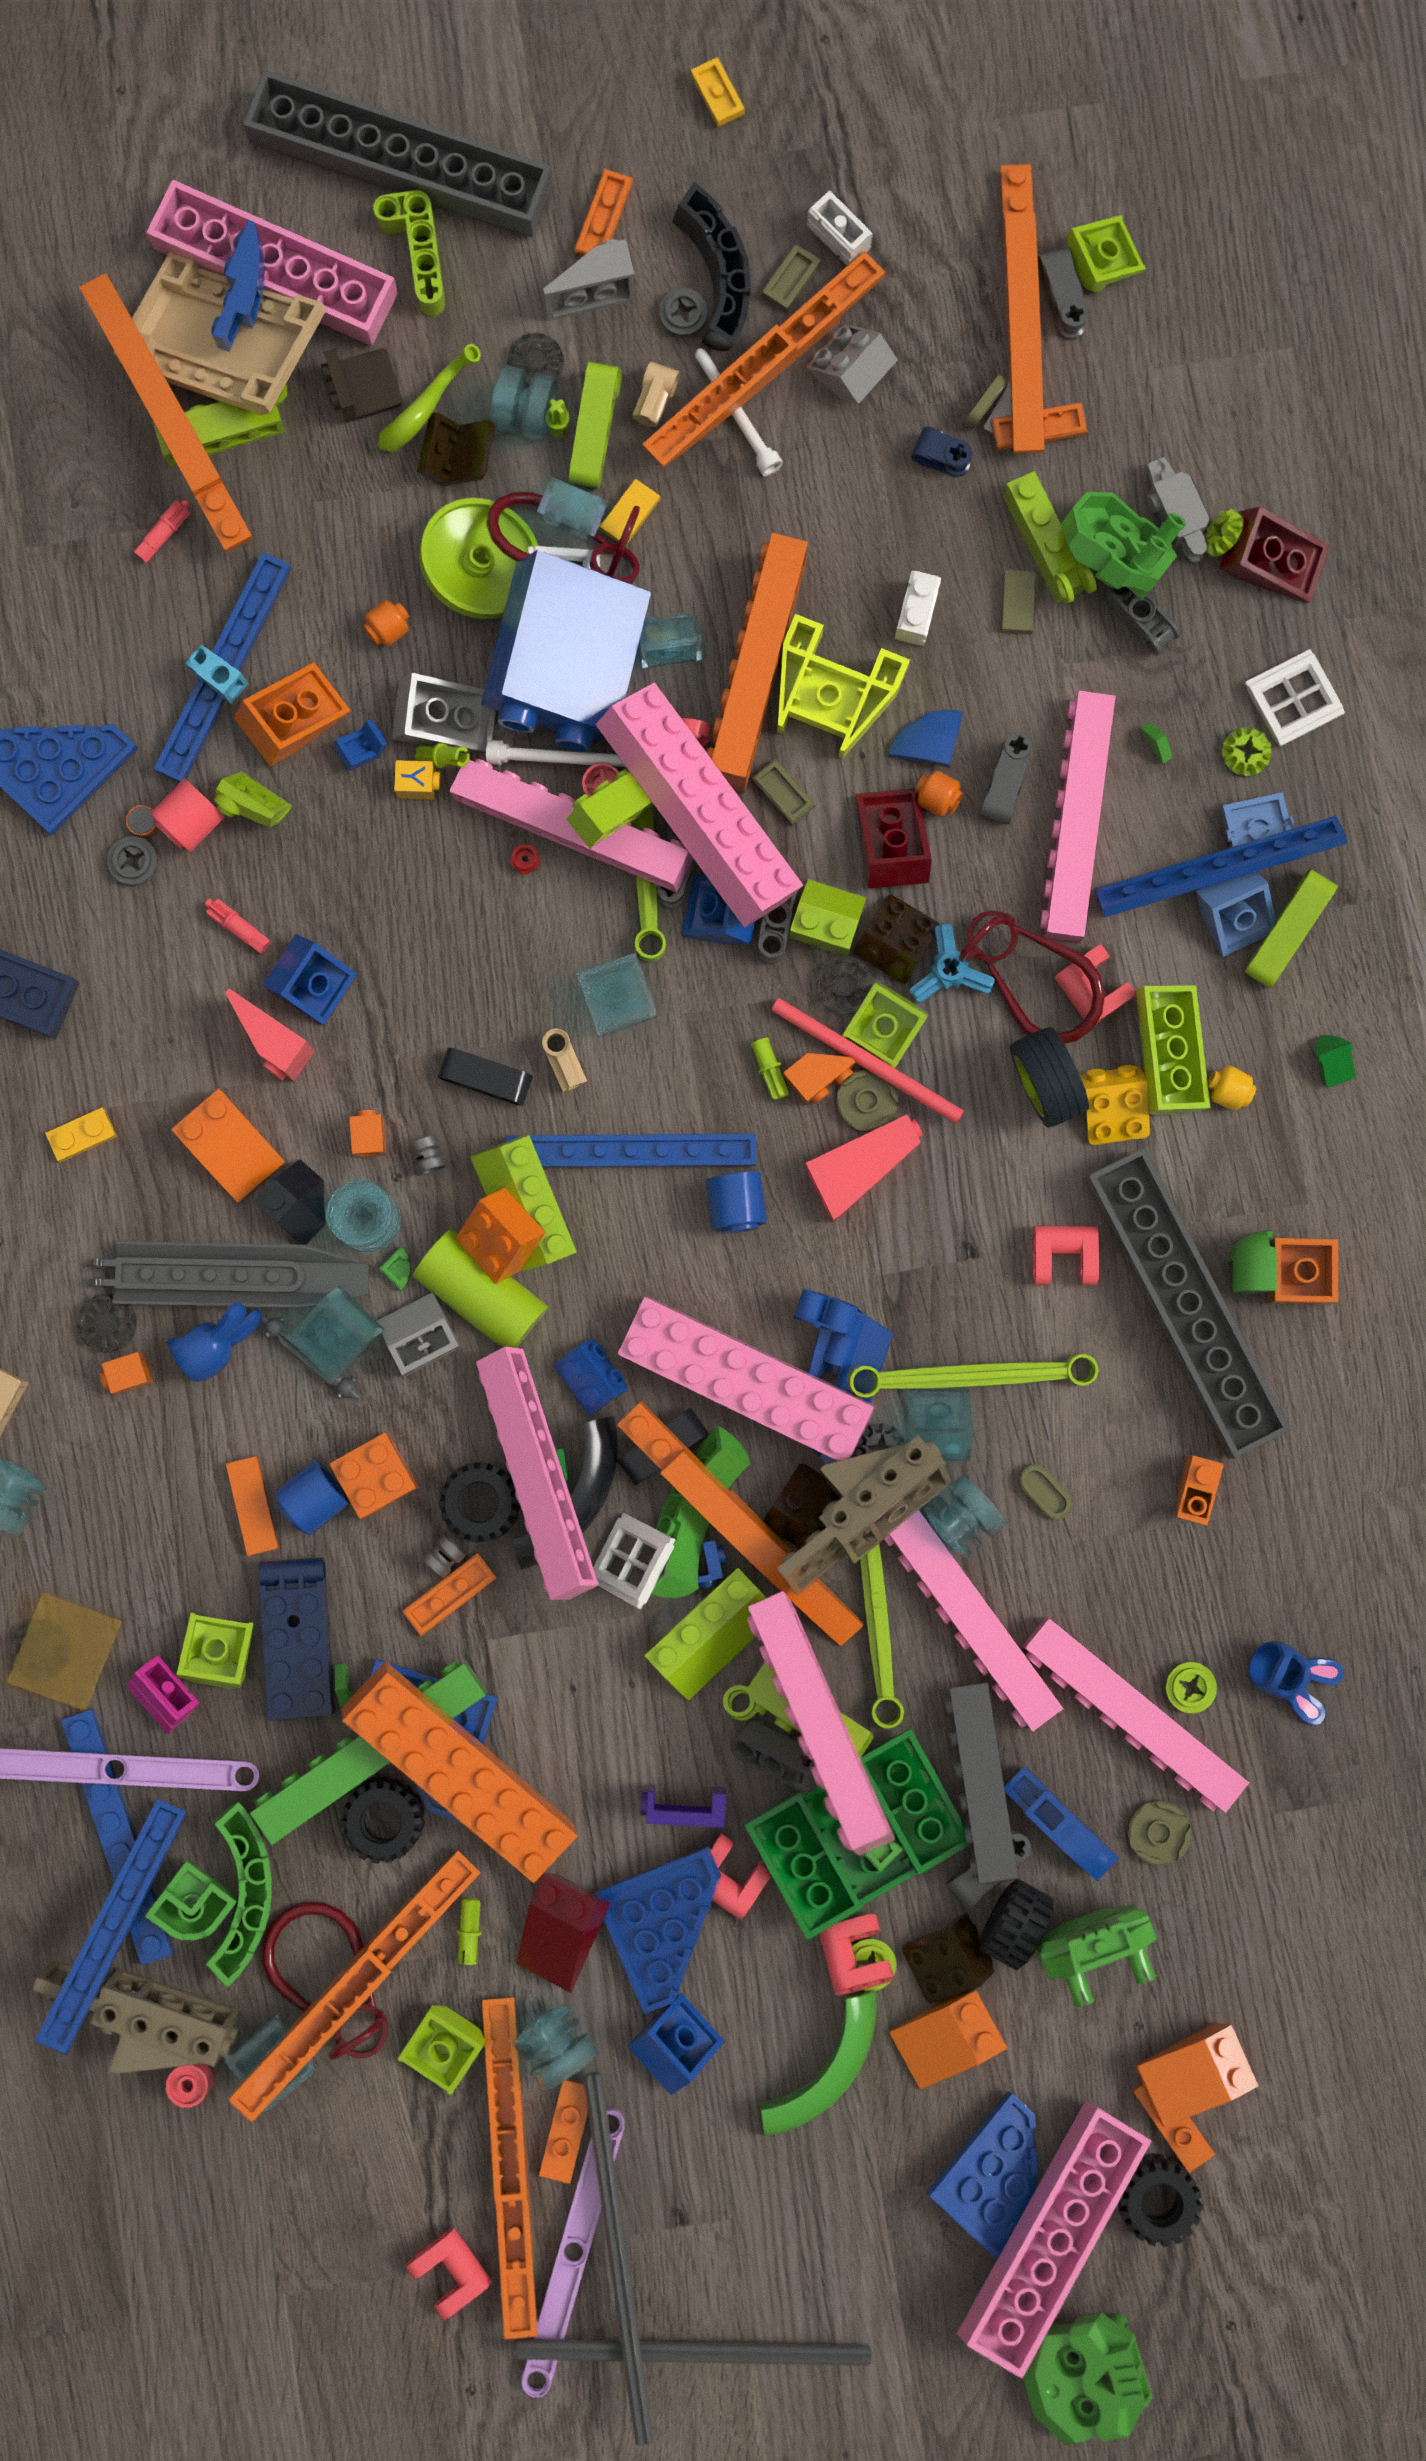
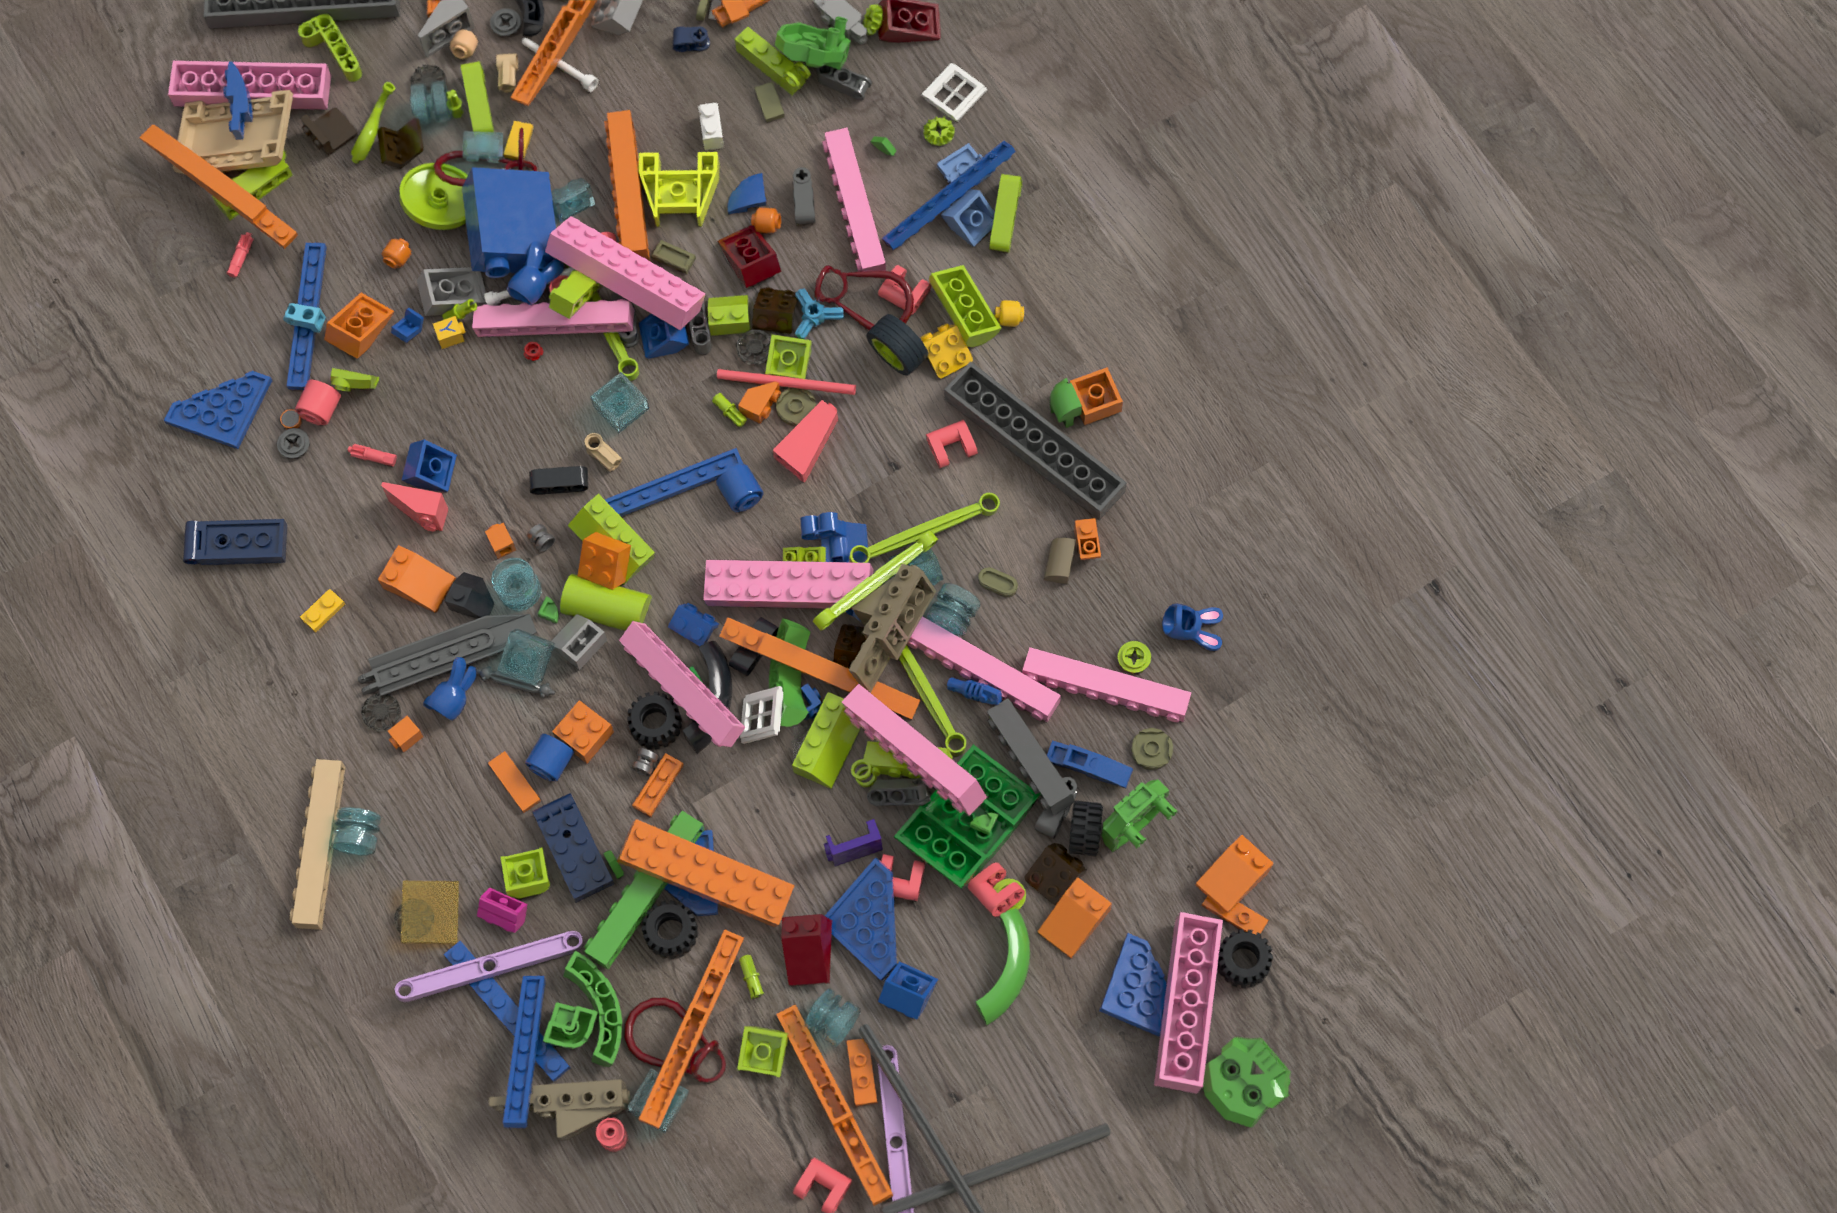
camera: 15 degrees left, 15 degrees down
(555, 758) = (528, 282): none -> blue piece
(608, 323) = (463, 44): none -> light nougat head
(786, 1342) = (802, 554): none -> lime slope
(863, 1442) = (873, 582): none -> lime piece
(946, 1649) = (975, 691): none -> blue hinge
(1146, 1498) = (1060, 560): none -> dark tan brick
(1334, 1060) = (1064, 275): green tile -> none

